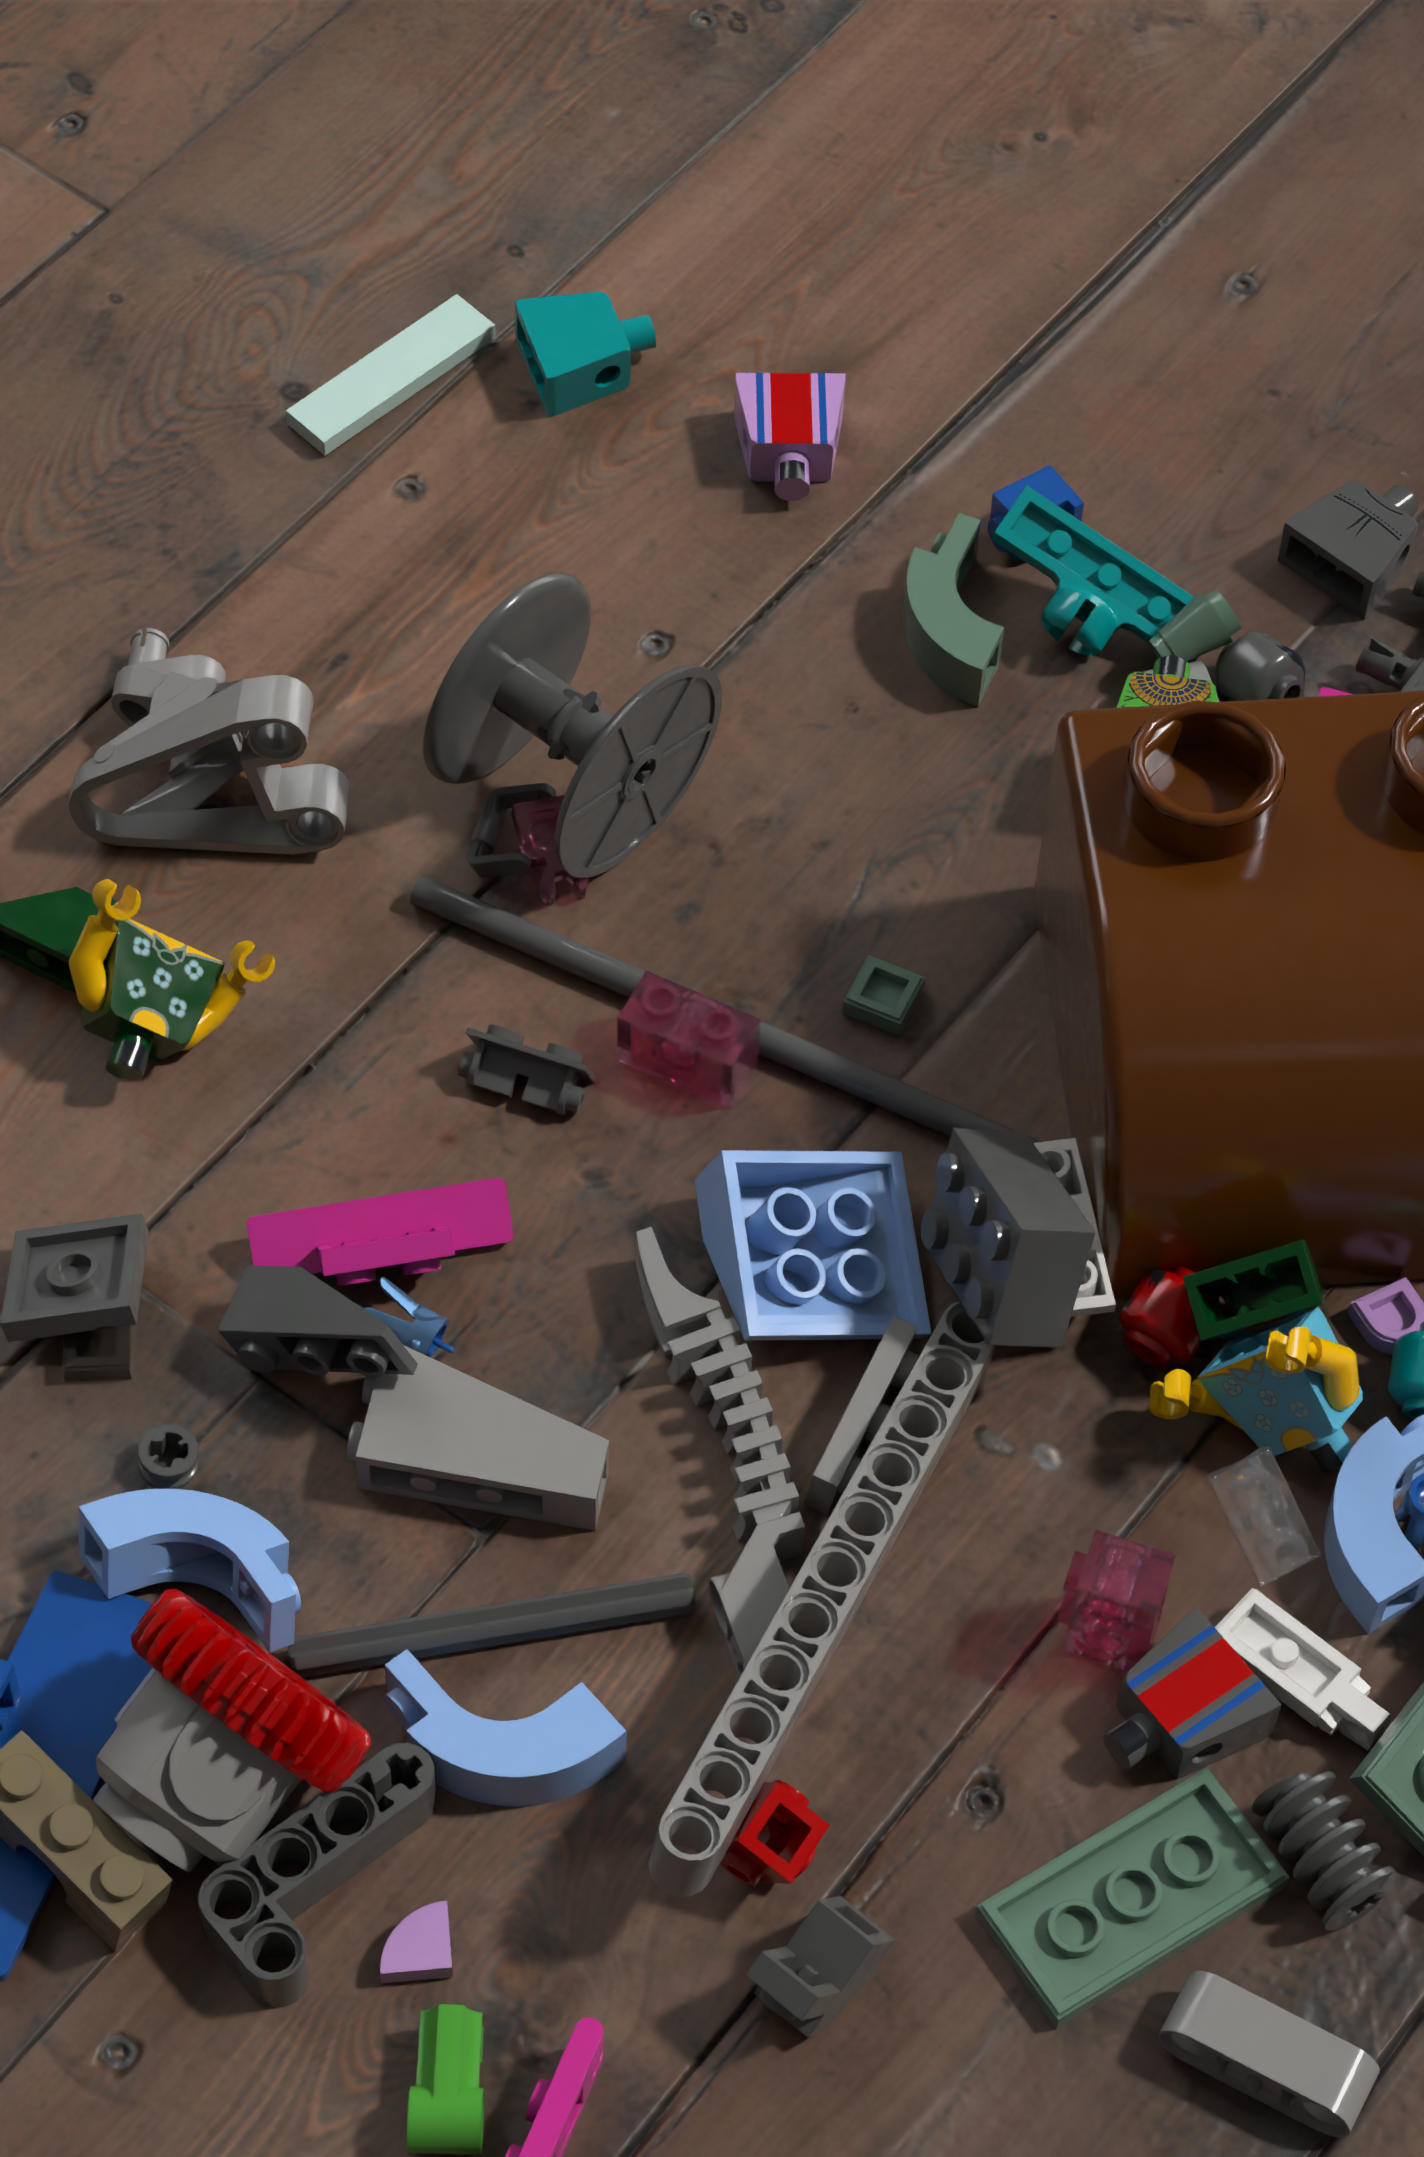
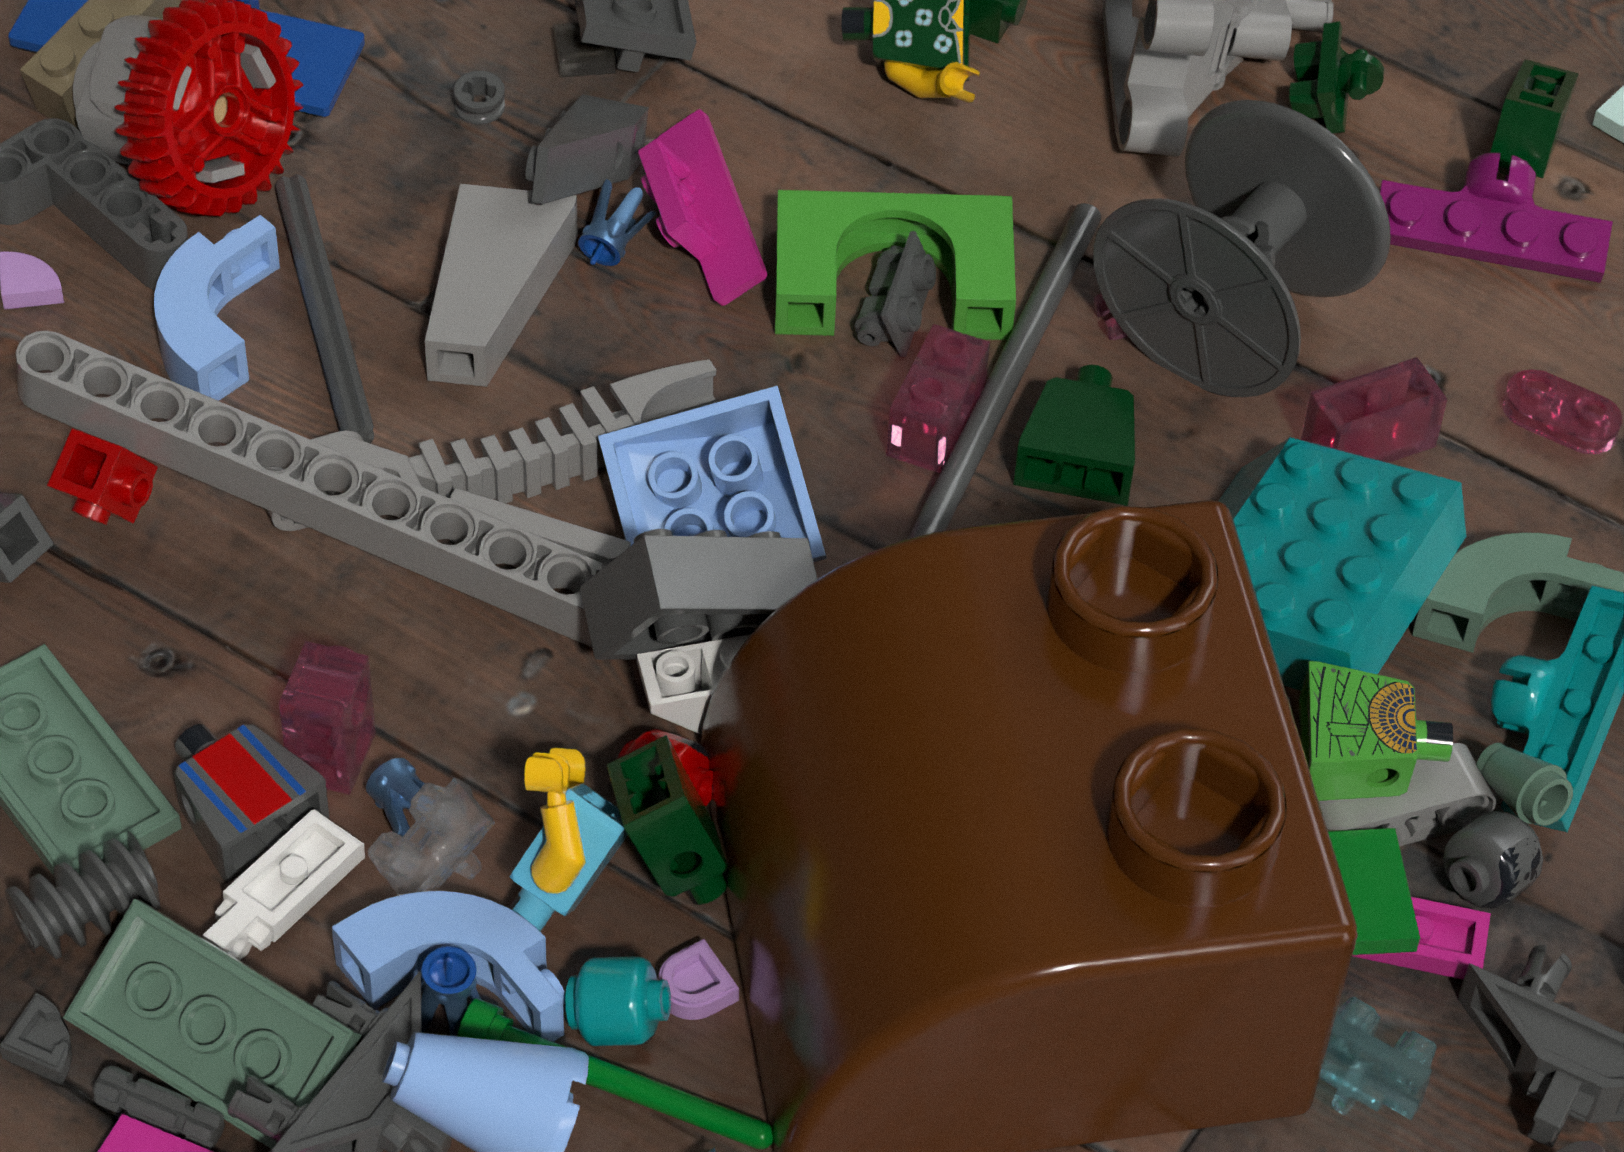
camera: 85 degrees right, 5 degrees down
(194, 1539) = (389, 82): light blue arch -> none
(255, 638) = (1330, 76): none -> dark green hips
(338, 490) = (1533, 115): none -> dark green slope
(444, 1130) = (829, 229): none -> bright green arch
(470, 549) = (1497, 223): none -> magenta plate
(726, 534) = (1562, 411): none -> clear pink plate
(740, 924) = (1080, 439): none -> dark green torso
(755, 681) = (1378, 413): none -> clear pink brick
(932, 759) = (1341, 551): none -> teal slope
(1187, 1545) = (392, 789): none -> flat silver piece

